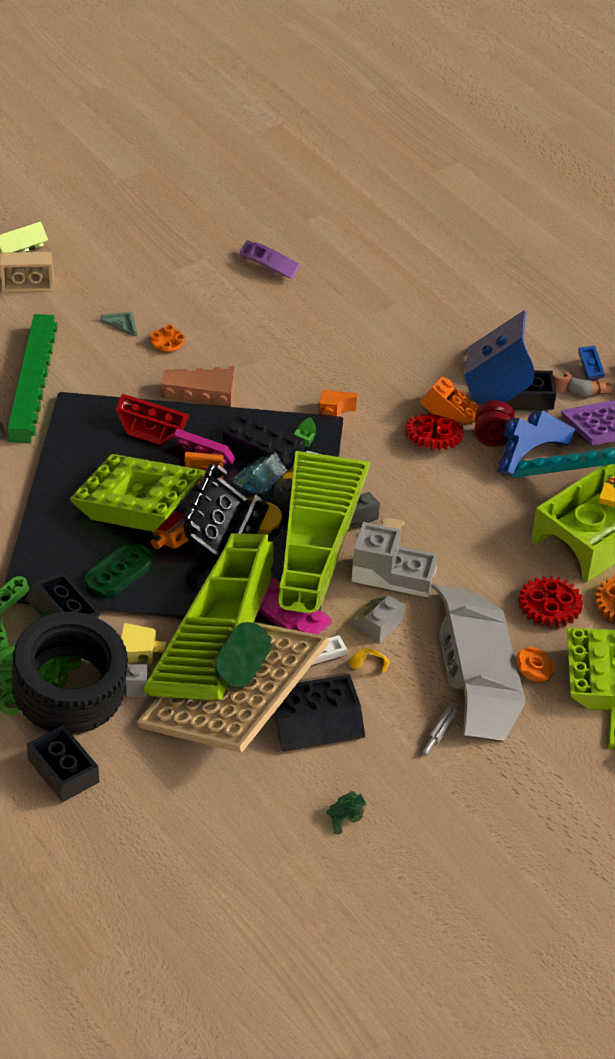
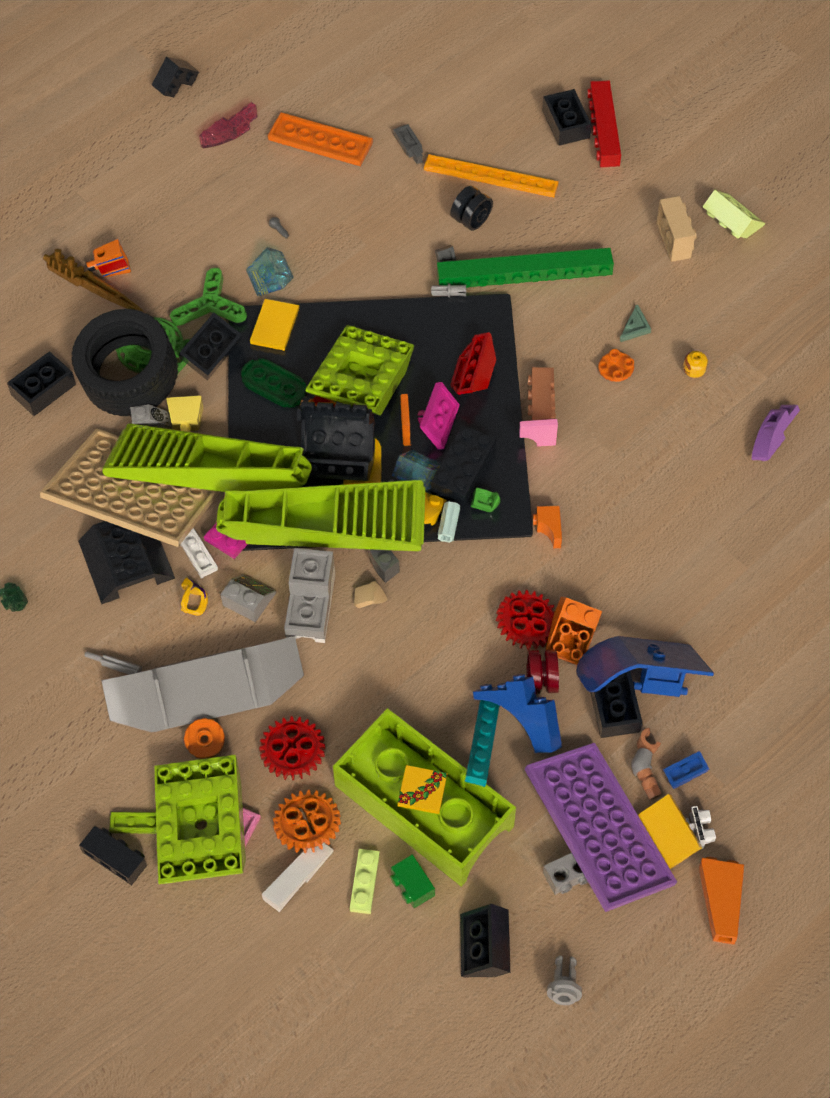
camera: 85 degrees right, 15 degrees up
(40, 559) = (274, 324): none -> yellow tile
(42, 428) = (448, 290): none -> light grey axle
(183, 289) = (695, 364): none -> yellow head
(238, 385) = (541, 431): none -> bright pink tile
(241, 655) = (148, 478): dark green tile -> none

